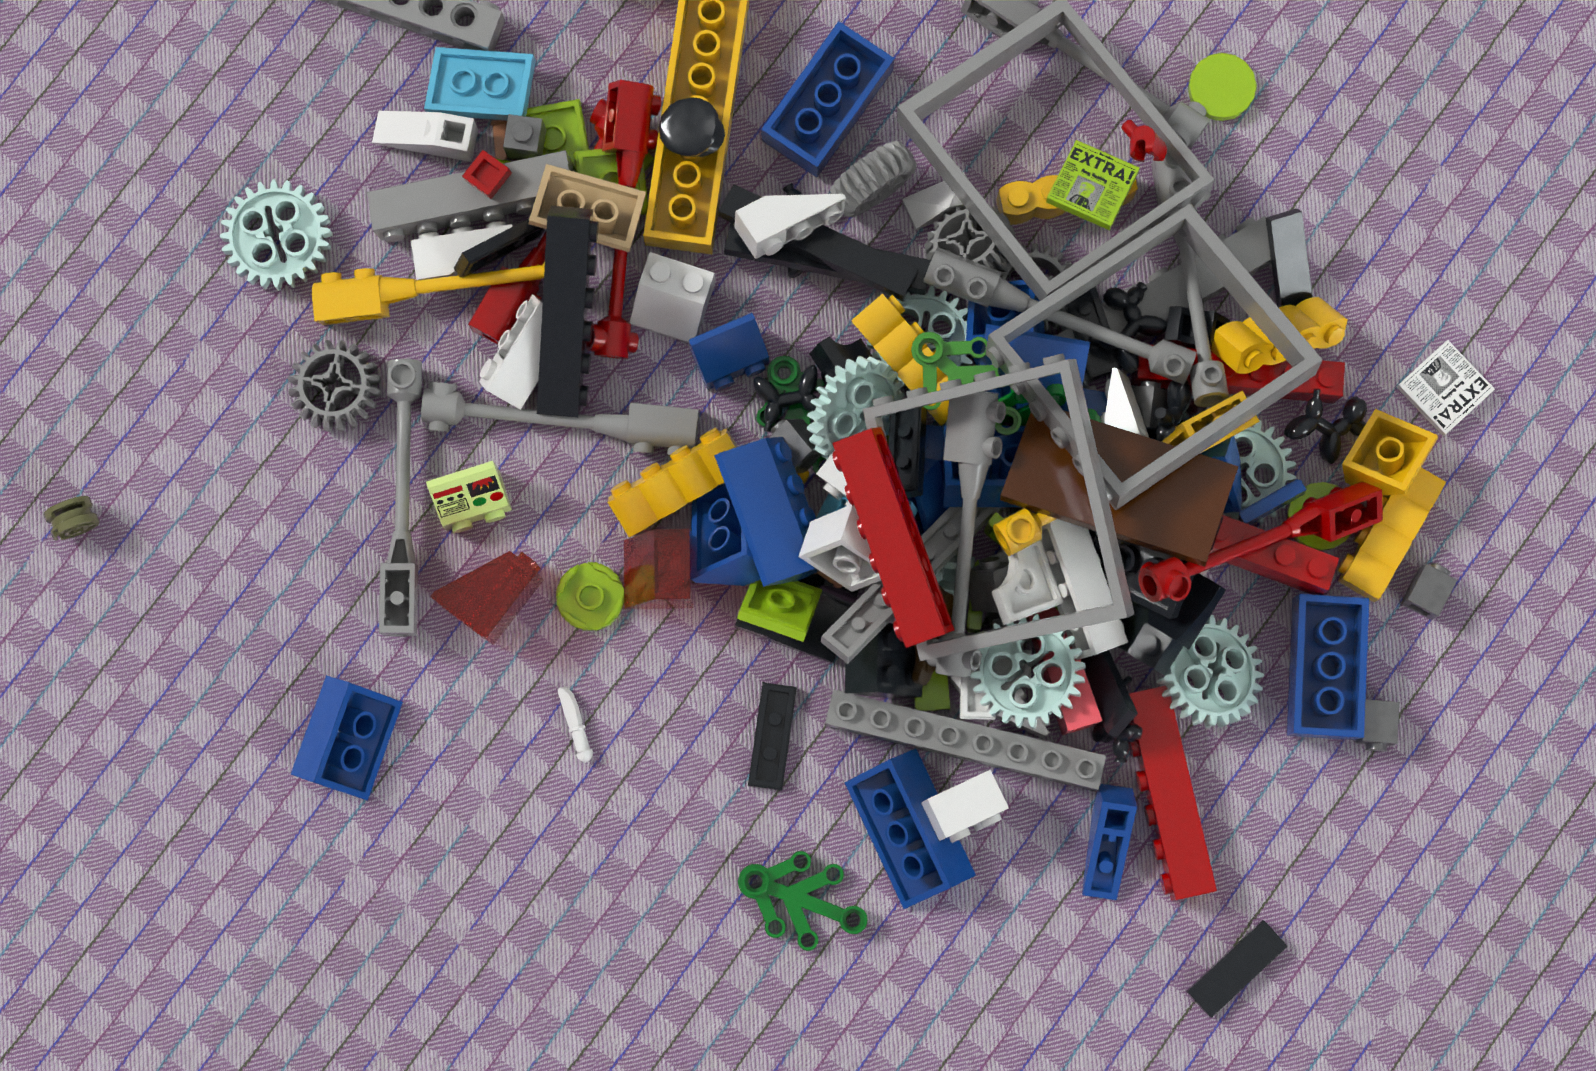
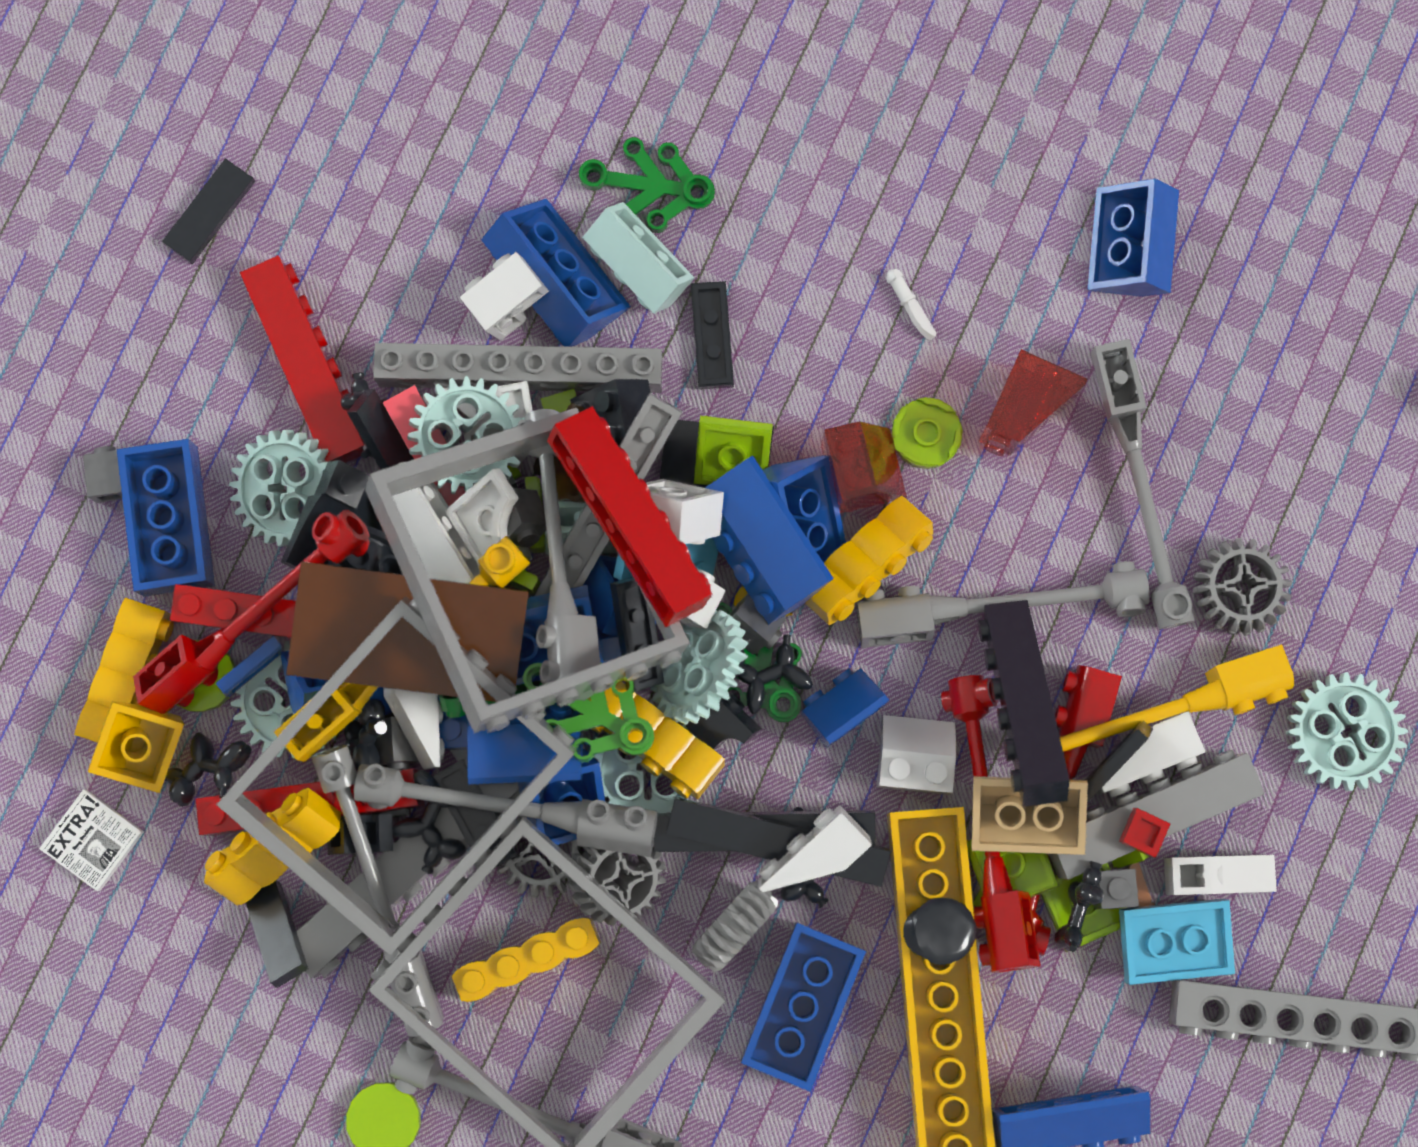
camera: 170 degrees right, 0 degrees up
(469, 497) = (1073, 500): yellowish green slope -> none
(516, 364) = (1063, 642): white slope -> none
(554, 133) = (1082, 896): none -> black piece
(827, 822) = (637, 257): none -> light aqua brick
(931, 204) = (666, 920): white slope -> none
(1092, 185) = (497, 954): lime tile -> none
(1108, 840) = (356, 304): blue slope -> none
(1144, 140) = (451, 1014): red piece -> none
(1429, 590) = (75, 621): flat silver brick -> none

